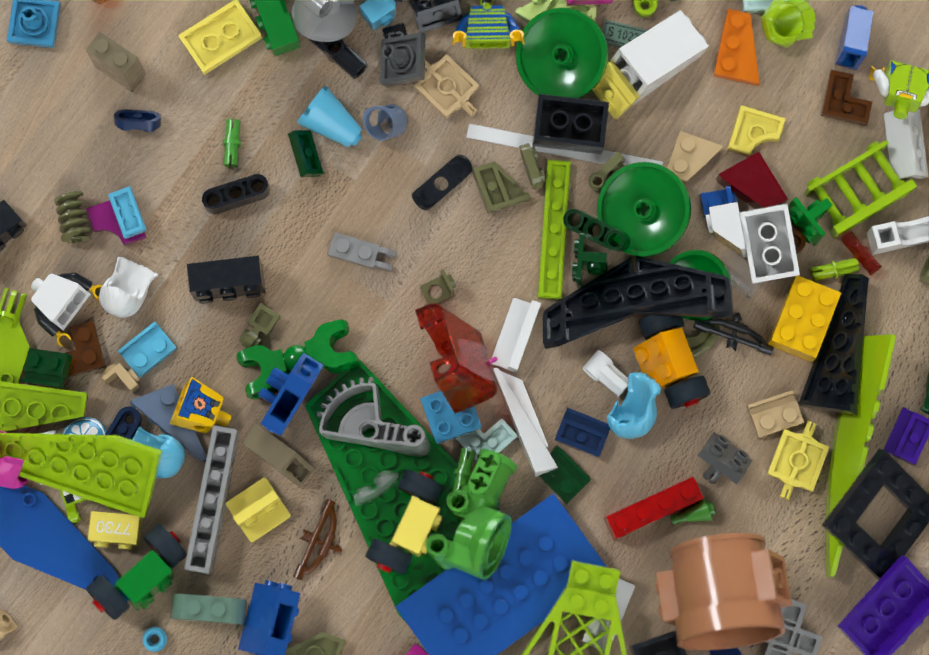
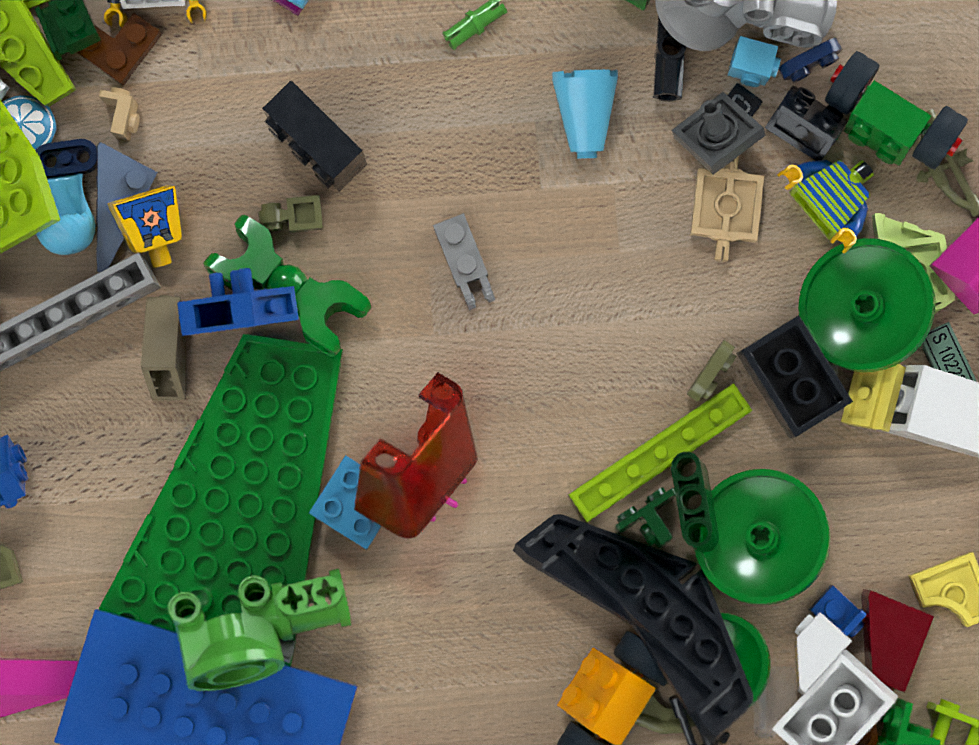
camera: 50 degrees right, 5 degrees up
(126, 288) = (221, 38): white piece -> none
(147, 349) = (174, 115): medium azure plate -> none
(224, 191) = (413, 58): black beam -> none
(258, 510) = (91, 374): light yellow bracket -> none
(305, 153) = (526, 111): dark green plate -> none
(326, 545) = (106, 458): reddish brown piece -> none
(383, 484) = (217, 487): clear slope -> none
(387, 112) = (647, 175): sand blue helmet -> none
(388, 436) = (283, 414): light grey arm -> none
(414, 527) = (195, 564): brick -> none
(445, 282) = (502, 382): olive bracket -> none
(454, 172) = (636, 291): black piece -> none
(464, 469) = (303, 567): bright green pin -> none
(495, 439) = (361, 570): light aqua plate -> none
(497, 188) = (656, 353): olive wing -> none
(515, 334) = (506, 502): white panel -> none
(516, 139) = (730, 331): white sticker -> none
(525, 422) = (413, 592): white wedge -> none
(567, 478) = (388, 677): dark green plate -> none
(582, 432) = (453, 665): dark blue plate -> none
(602, 369) = (541, 630): white piece -> none
(609, 167) = (784, 461): olive plate -> none
(638, 410) = (524, 709): medium azure piece -> none
(691, 155) = (867, 540): tan wing -> none

